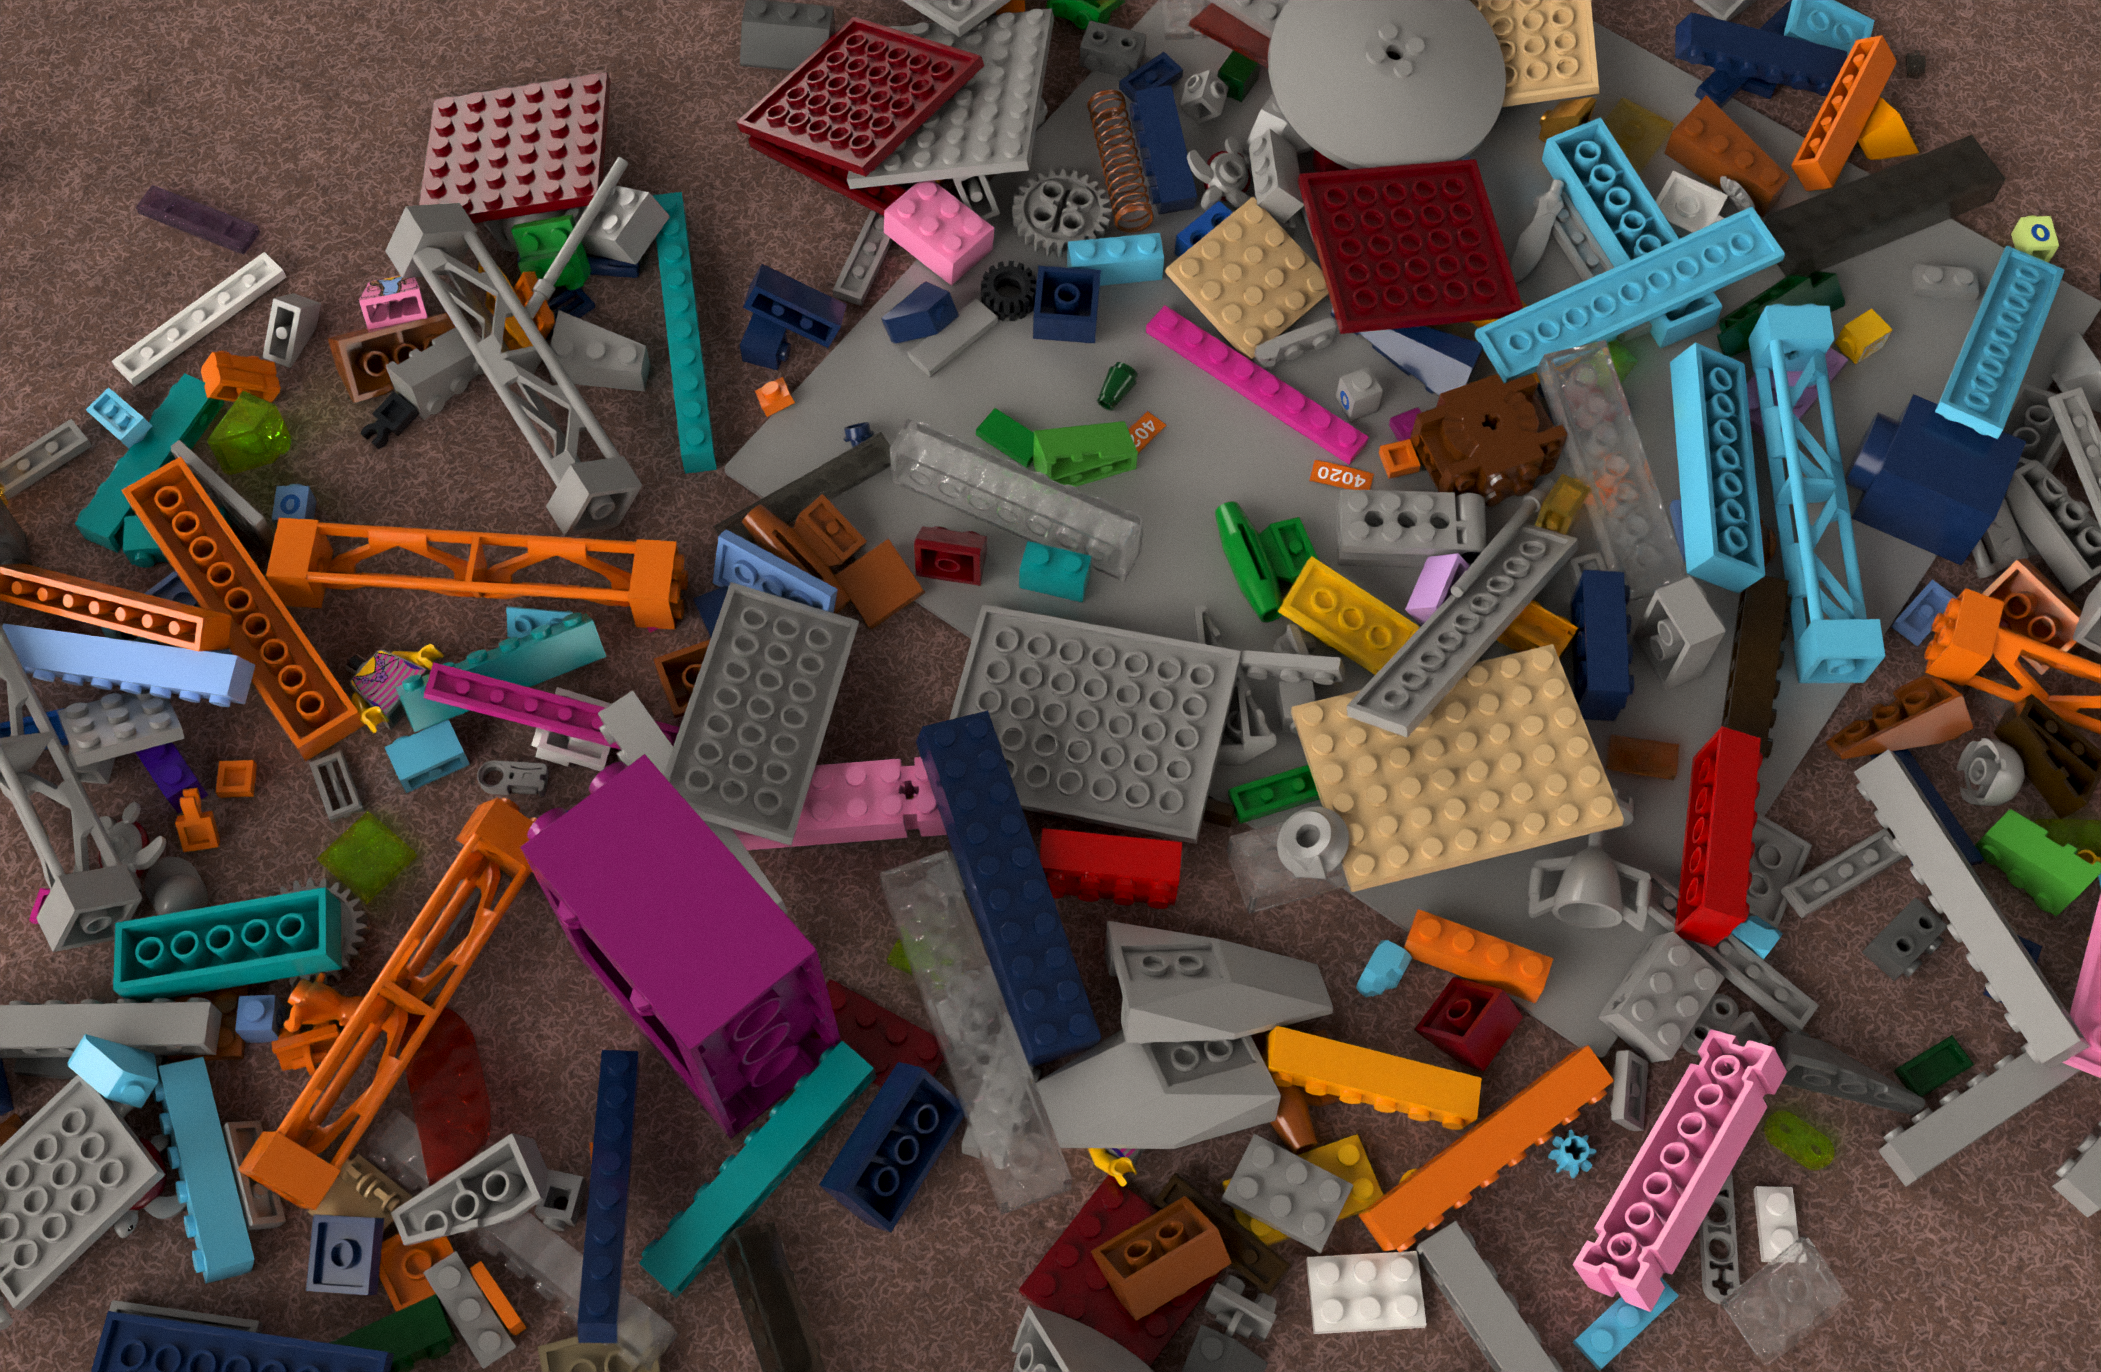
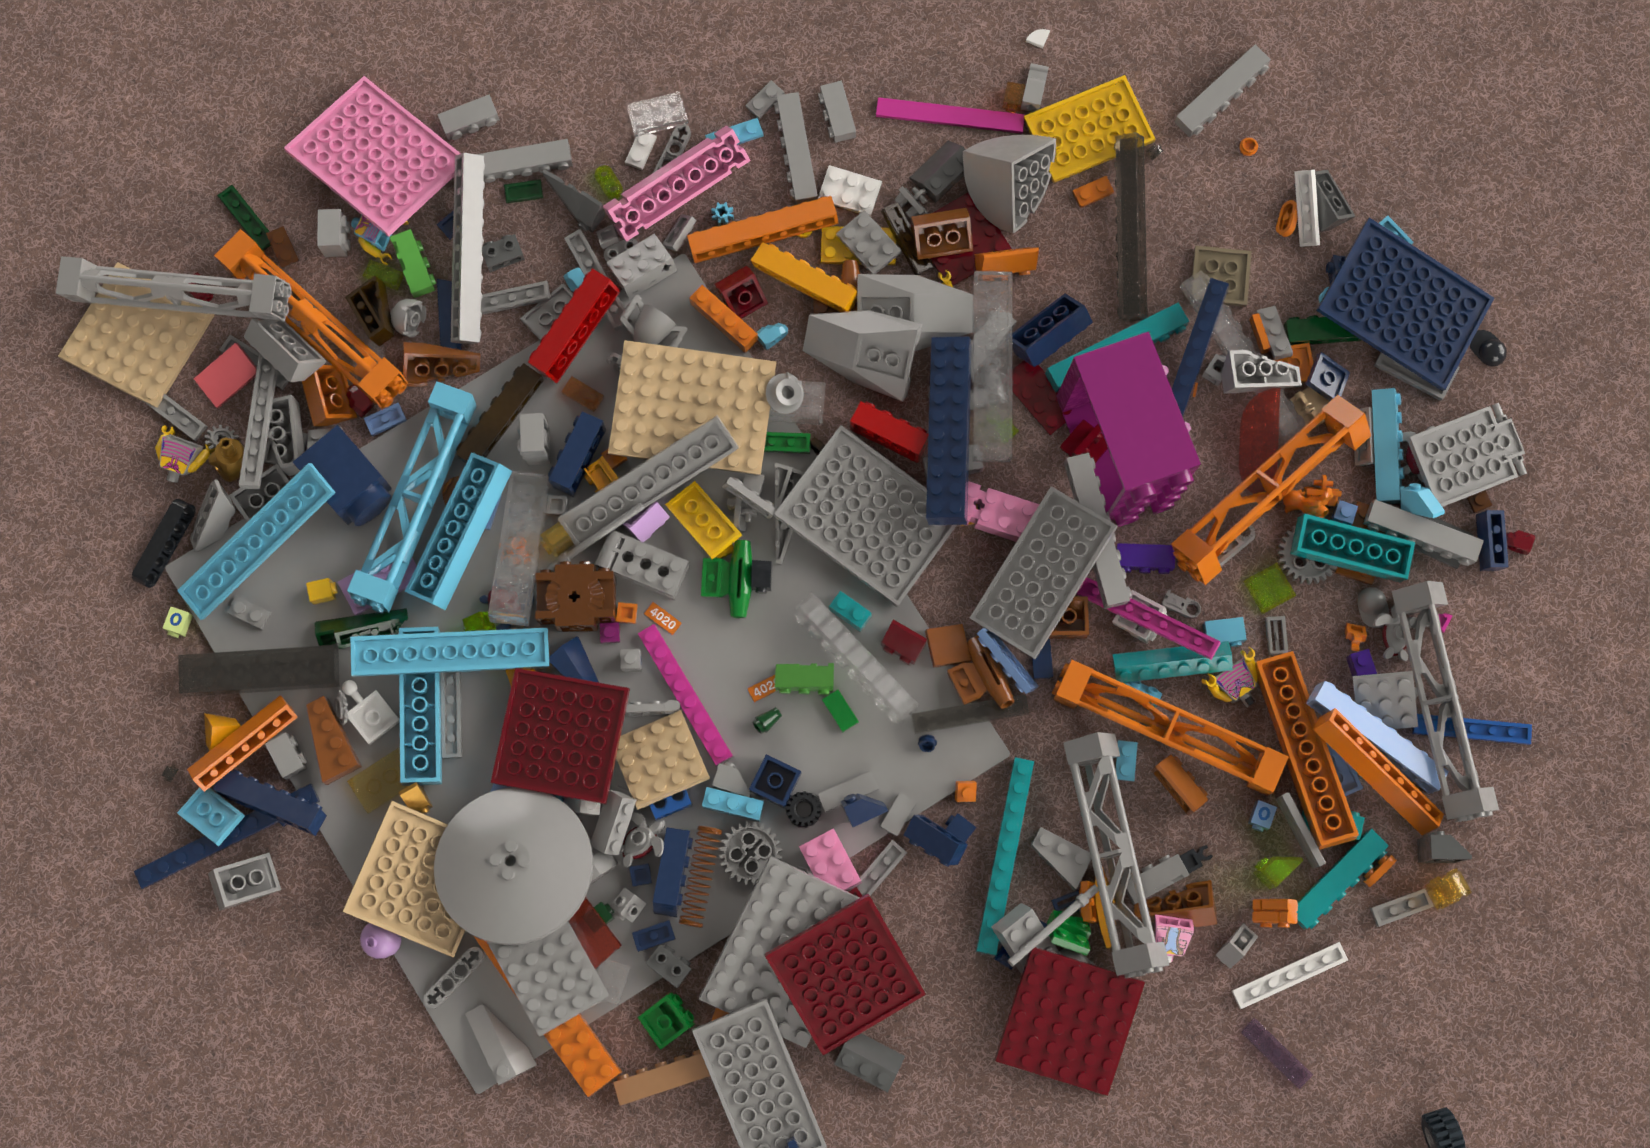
camera: 155 degrees left, 15 degrees up
(81, 493) = (1384, 865): none -> orange plate
(119, 418) = (1351, 911): medium azure plate -> none
(236, 778) = (1329, 657): orange plate -> none
(436, 499) = (1180, 784): none -> dark orange slope
(534, 515) = (1126, 763): none -> medium azure plate
(864, 332) = (898, 814): none -> light grey tile
(1023, 1250) = (1012, 260): none -> orange slope
(1132, 289) = (730, 780): none -> light grey slope
(1205, 140) = (640, 875): none -> dark blue plate
(1218, 574) = (761, 576): none -> black slope
(1534, 239) = (475, 728): light grey sword -> none
(1775, 123) = (286, 755): none -> light grey brick

